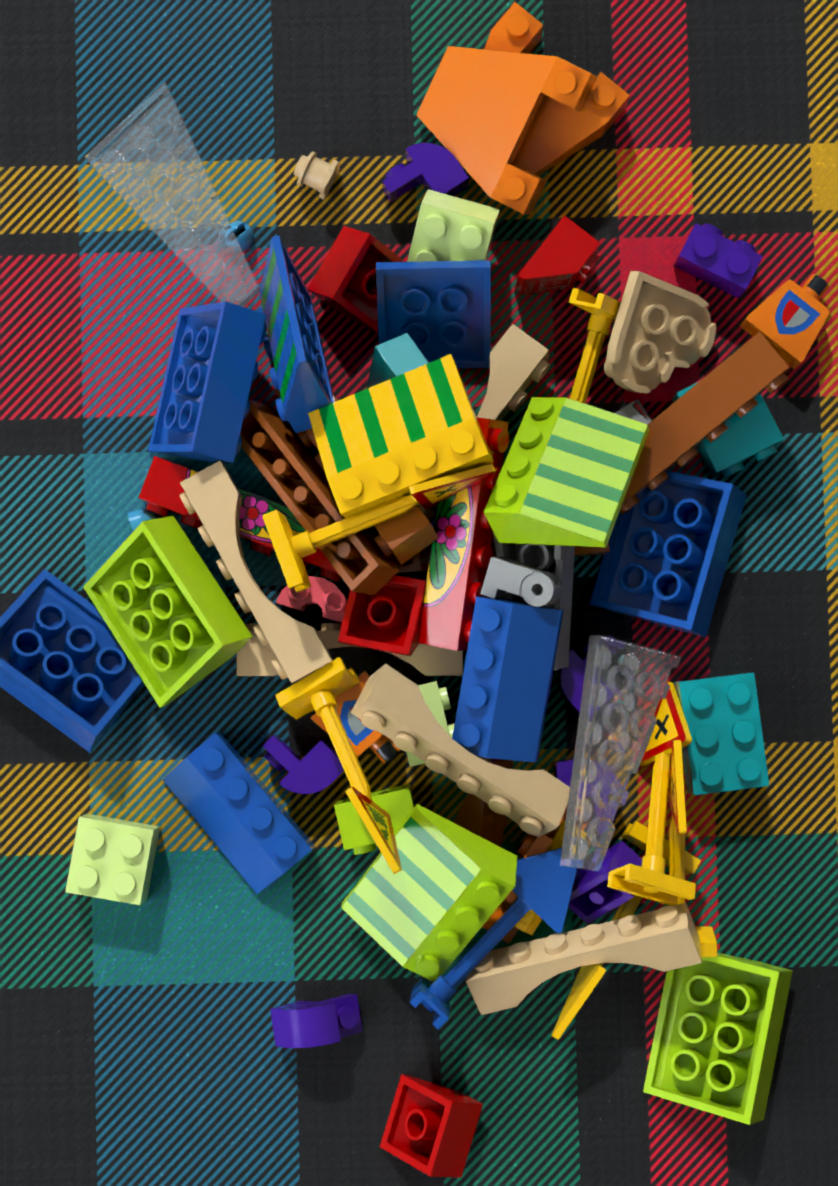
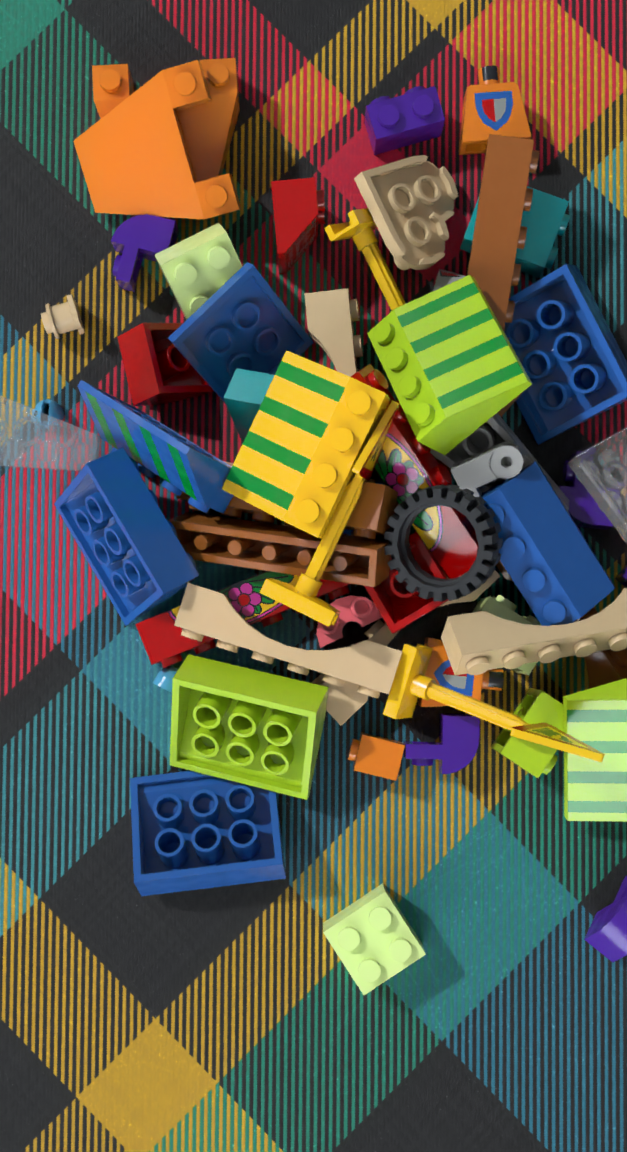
camera: 50 degrees left, 0 degrees up
(238, 812) = (432, 821): blue slope -> none
(243, 724) = (376, 756): none -> orange brick
(394, 598) = (407, 566): none -> black tyre

